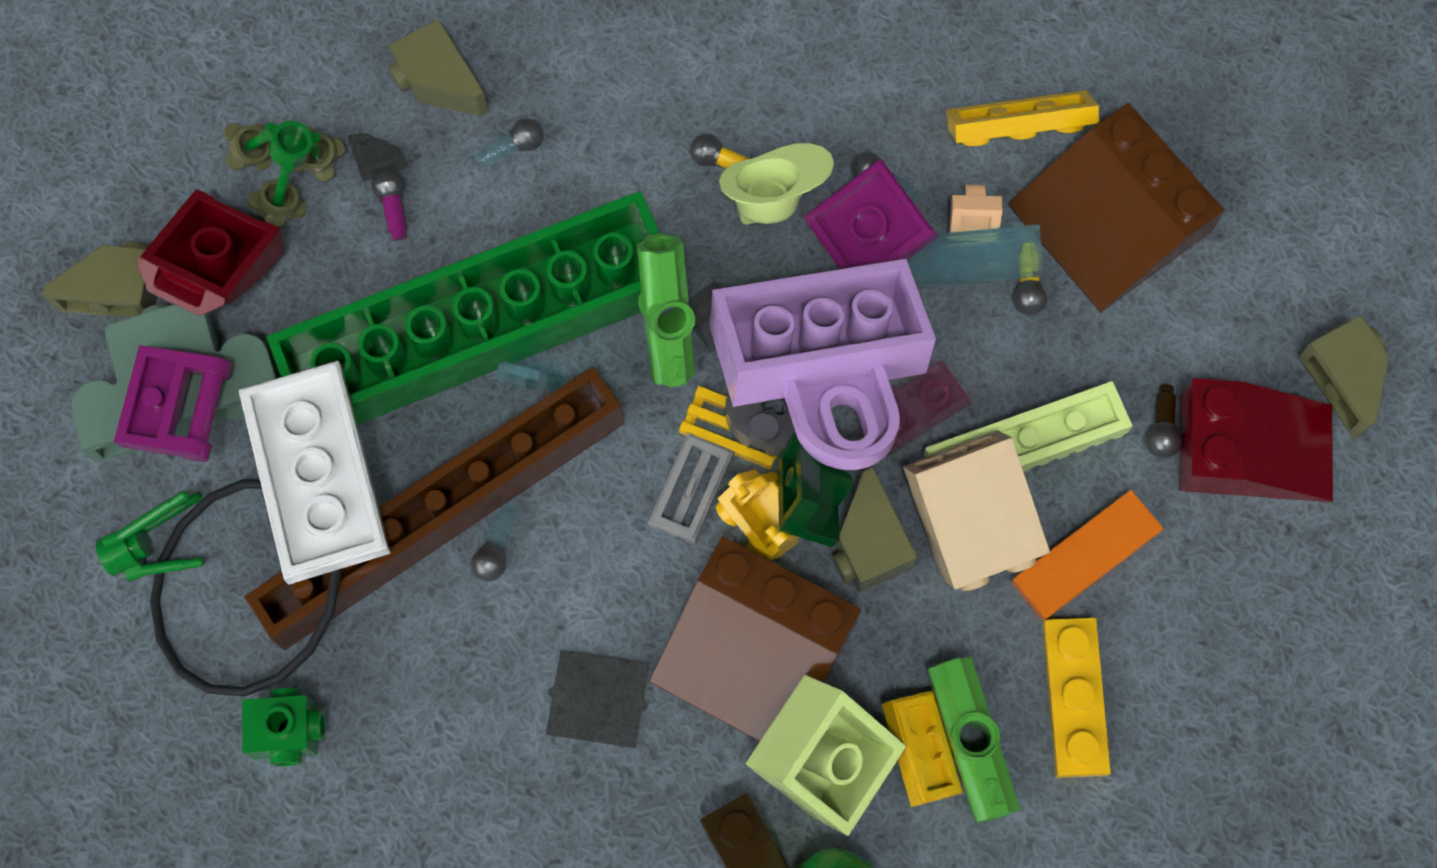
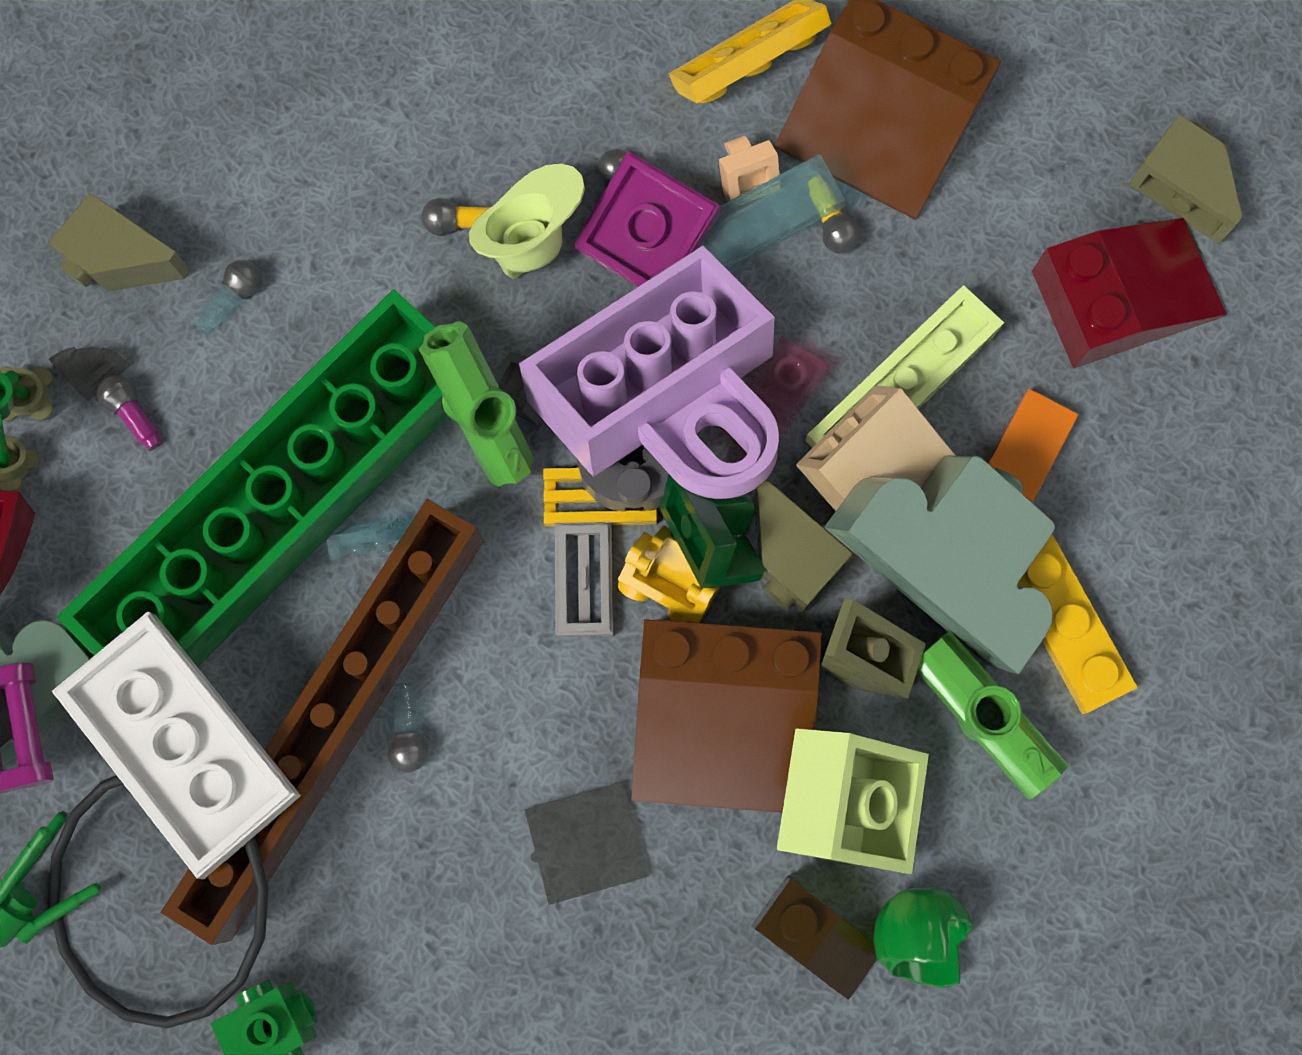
camera: 25 degrees left, 5 degrees up
(894, 641) = (872, 652): none -> olive slope
(927, 759) = (954, 758): yellow plate -> none
(1001, 592) = (956, 552): none -> sand green brick
(1164, 436) = (1037, 321): piece -> none

